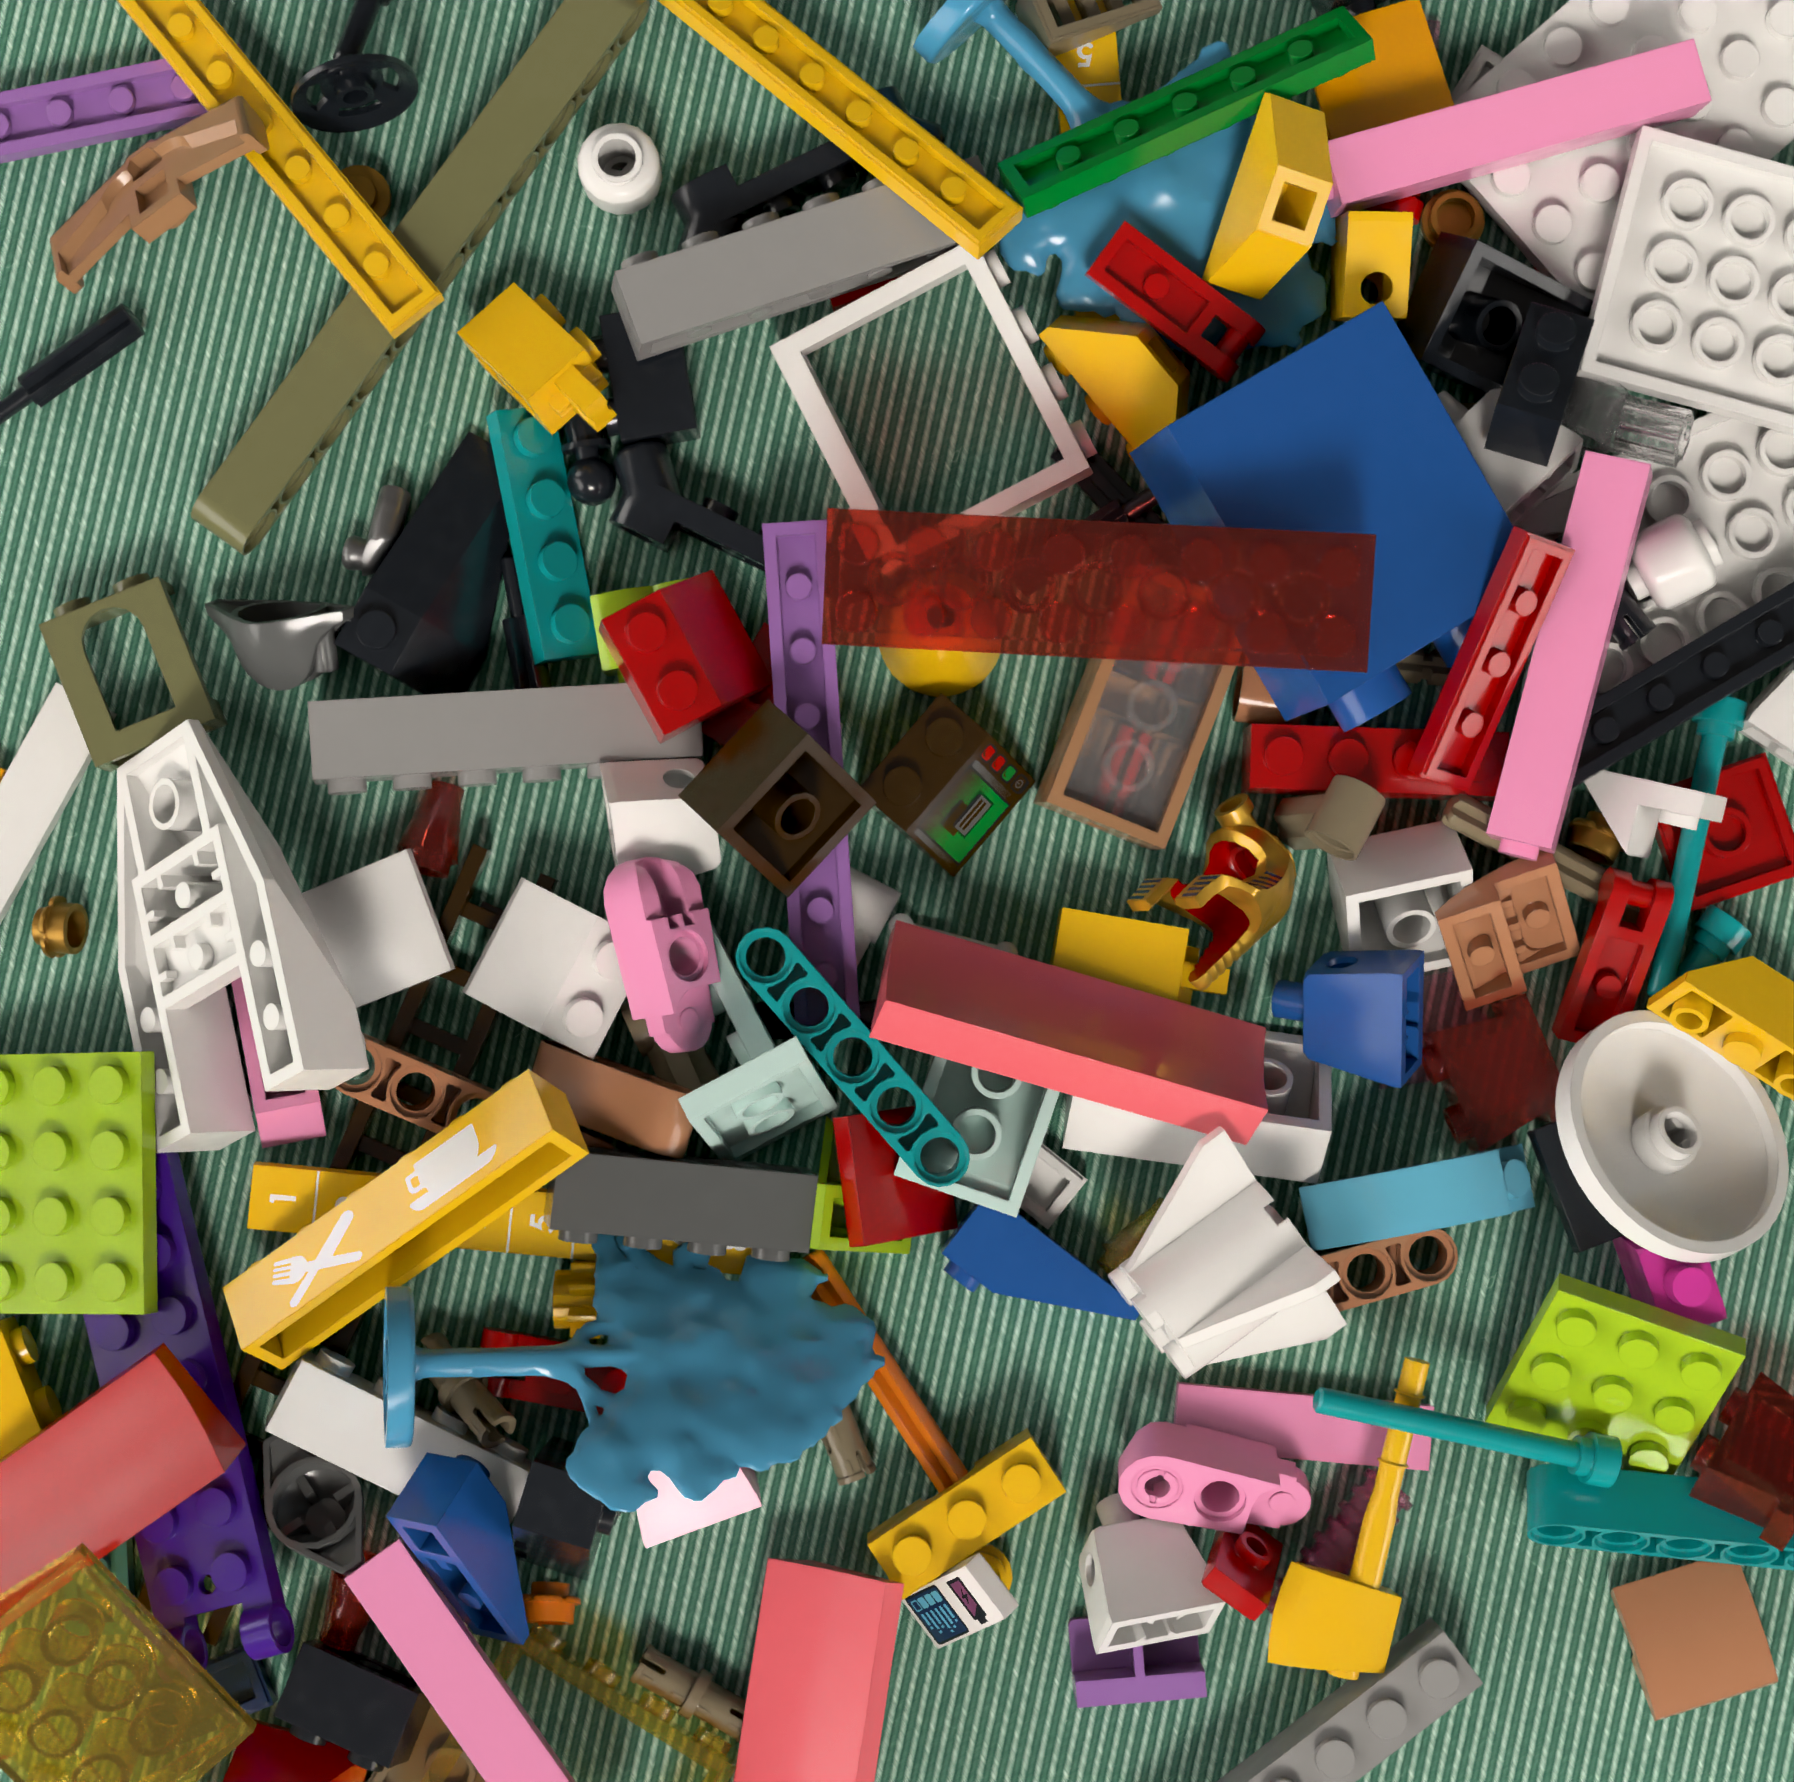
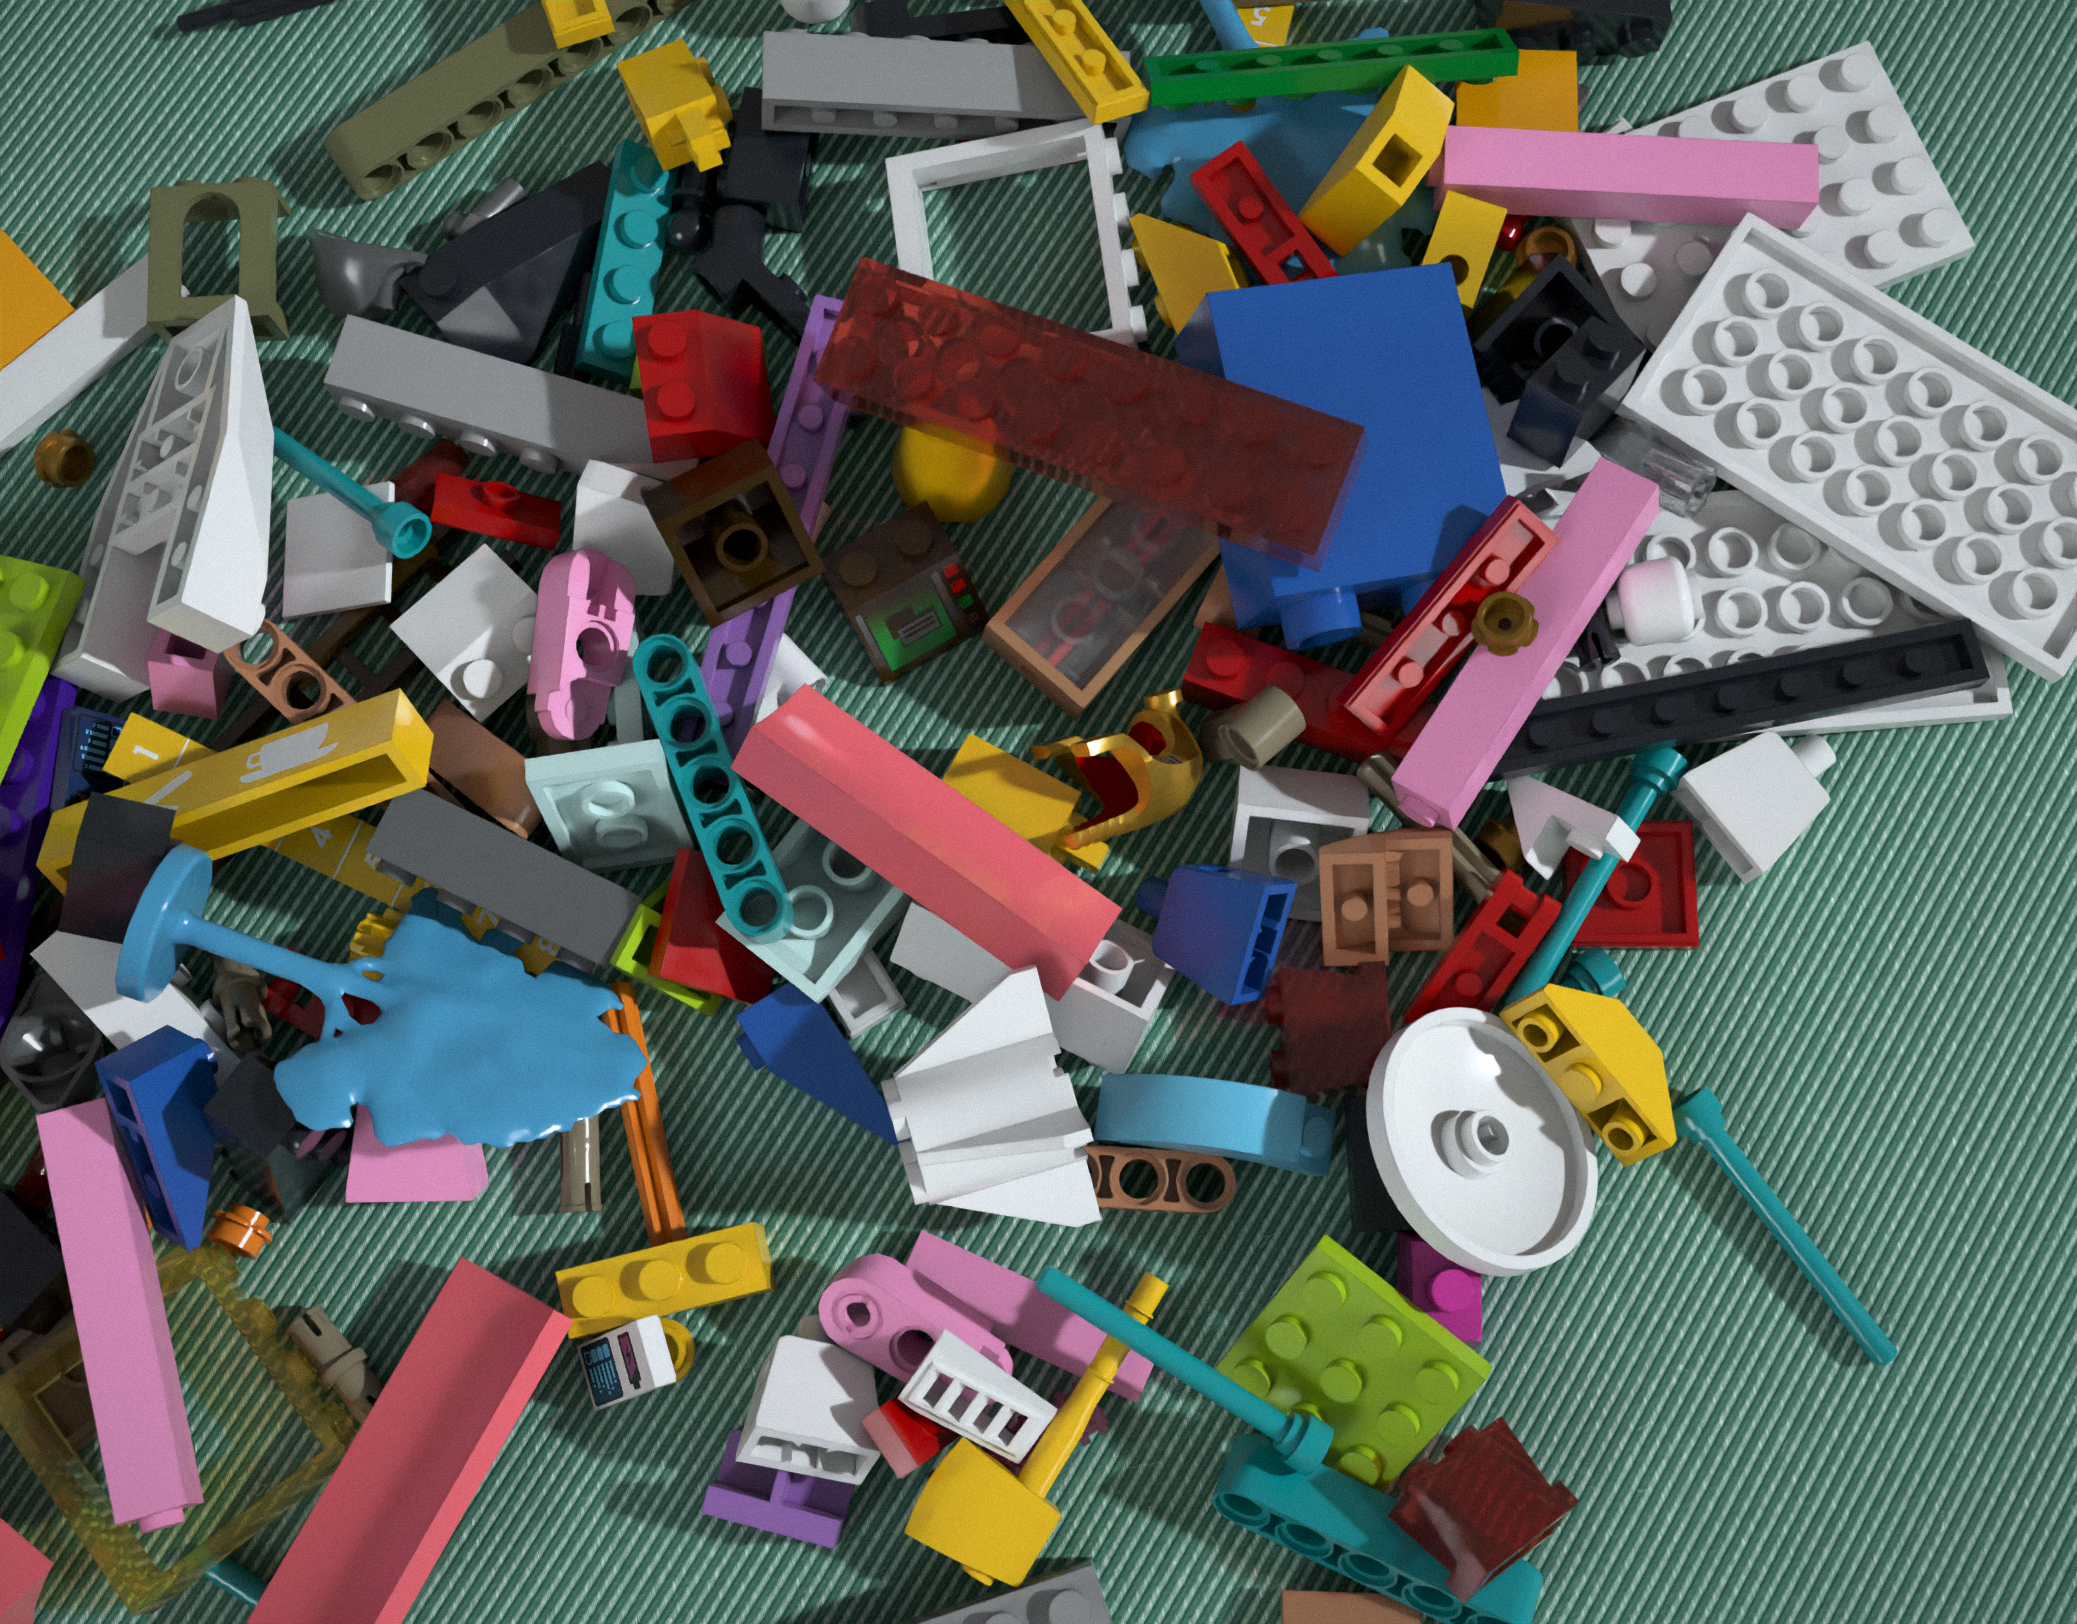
camera: 30 degrees right, 10 degrees down
(219, 1223) = (82, 752): none -> tile
(330, 1330) = (112, 865): none -> black brick
(439, 895) = (396, 524): none -> teal piece
(519, 840) = (495, 511): none -> red plate
(1279, 1502) = (972, 1369): none -> white slope
(1549, 634) = (1505, 607): none -> pearl gold plate

